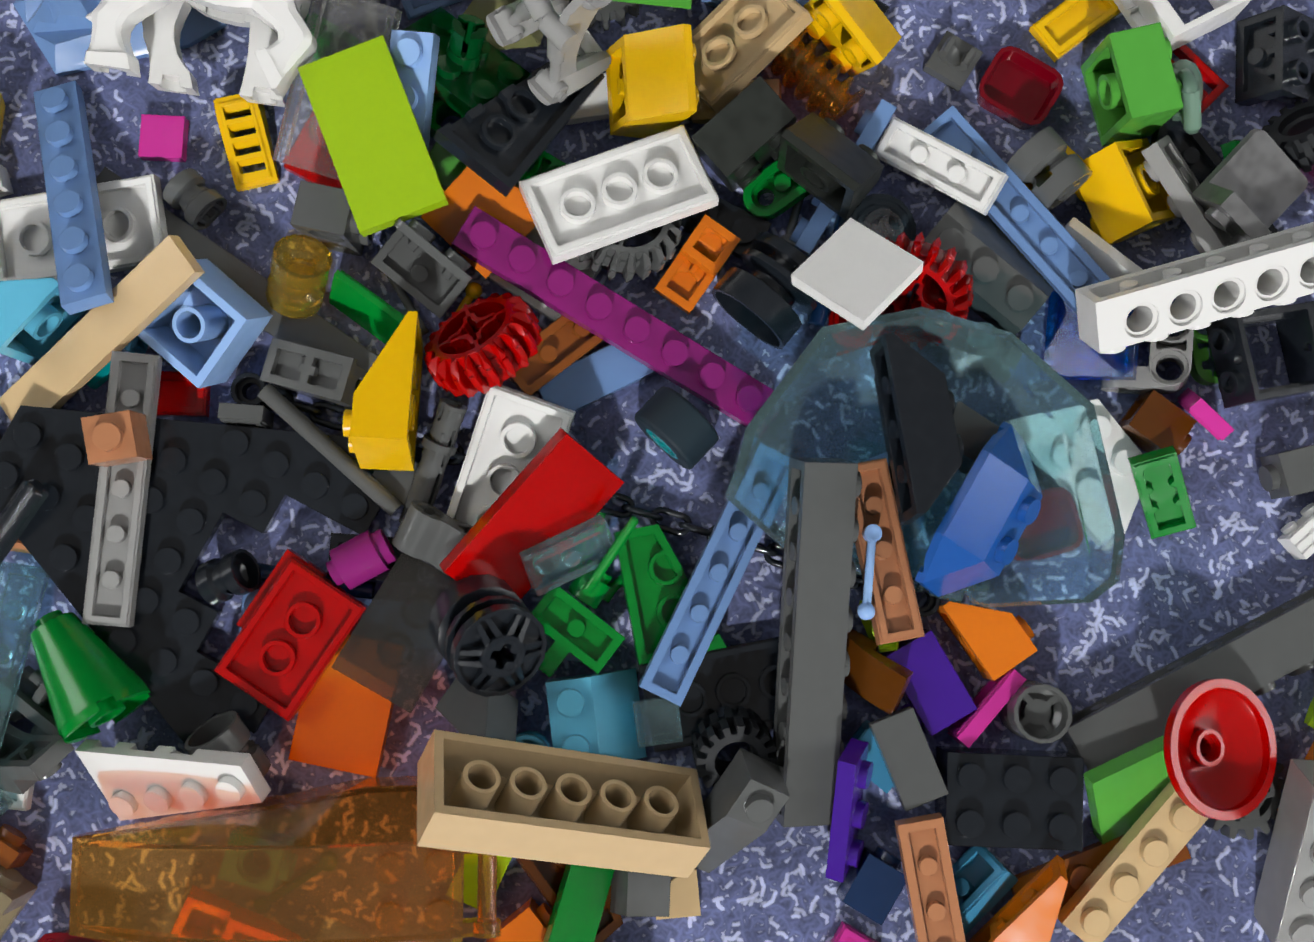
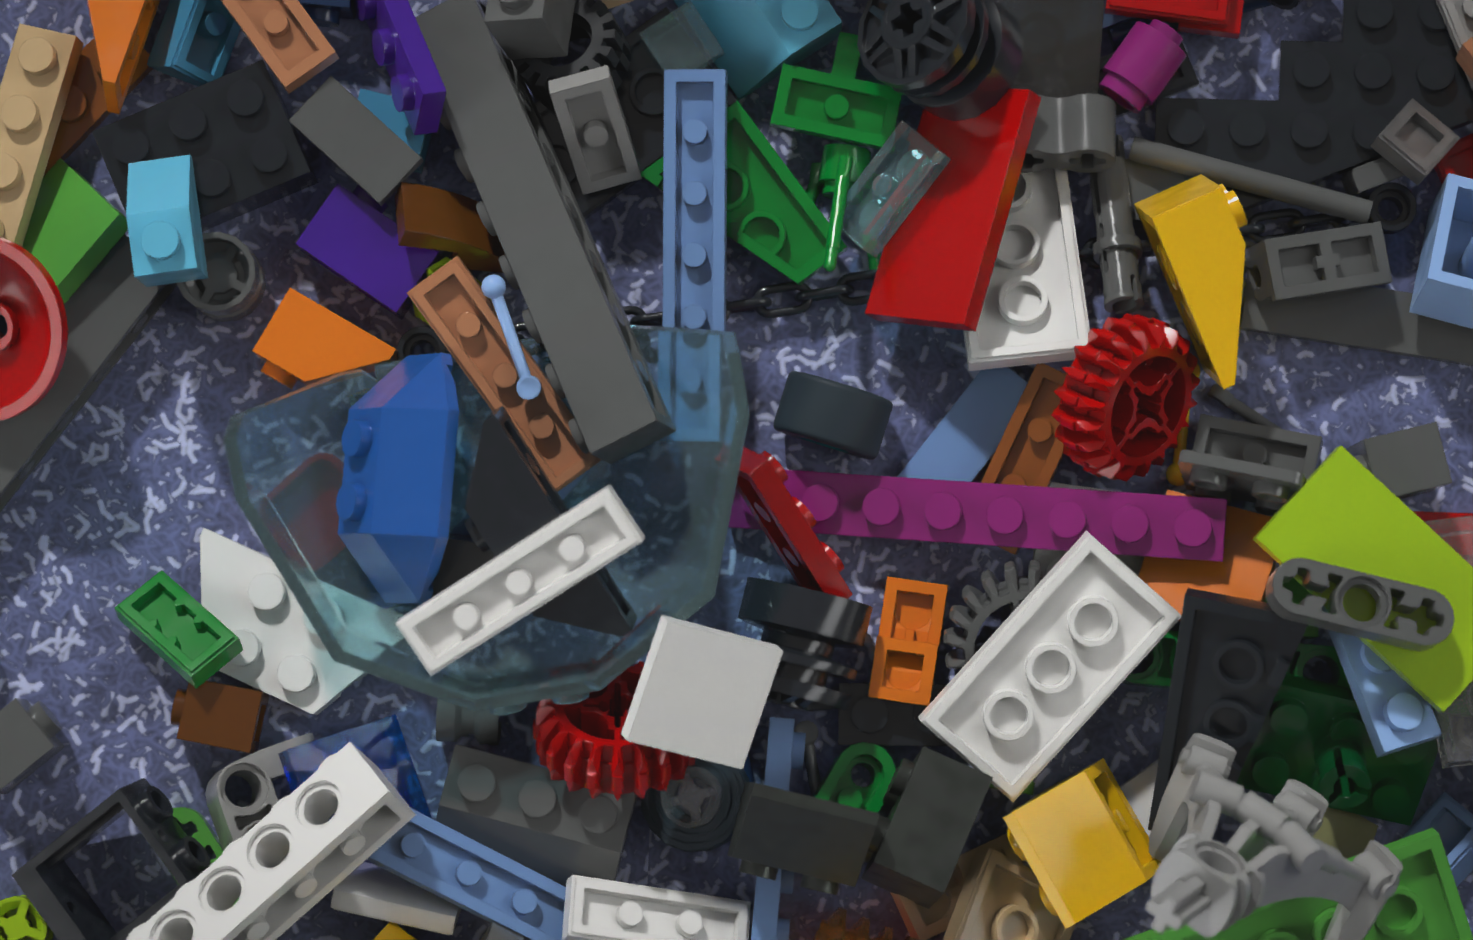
camera: 165 degrees right, 0 degrees up
(209, 419) = (1415, 141): none -> flat silver tile
(298, 276) = (1401, 374): clear yellow wheel -> none
(364, 306) = (1295, 383): green slope -> none
(382, 122) = (1401, 631): none -> dark grey beam
(740, 365) = (788, 525): none -> red plate
(745, 689) = (594, 129): none -> light grey plate
(945, 398) = (520, 580): none -> white tile
(989, 703) = (282, 254): dark pink tile -> none
(1067, 763) = (165, 222): none -> medium azure slope
(1205, 414) = (170, 751): dark pink tile -> none

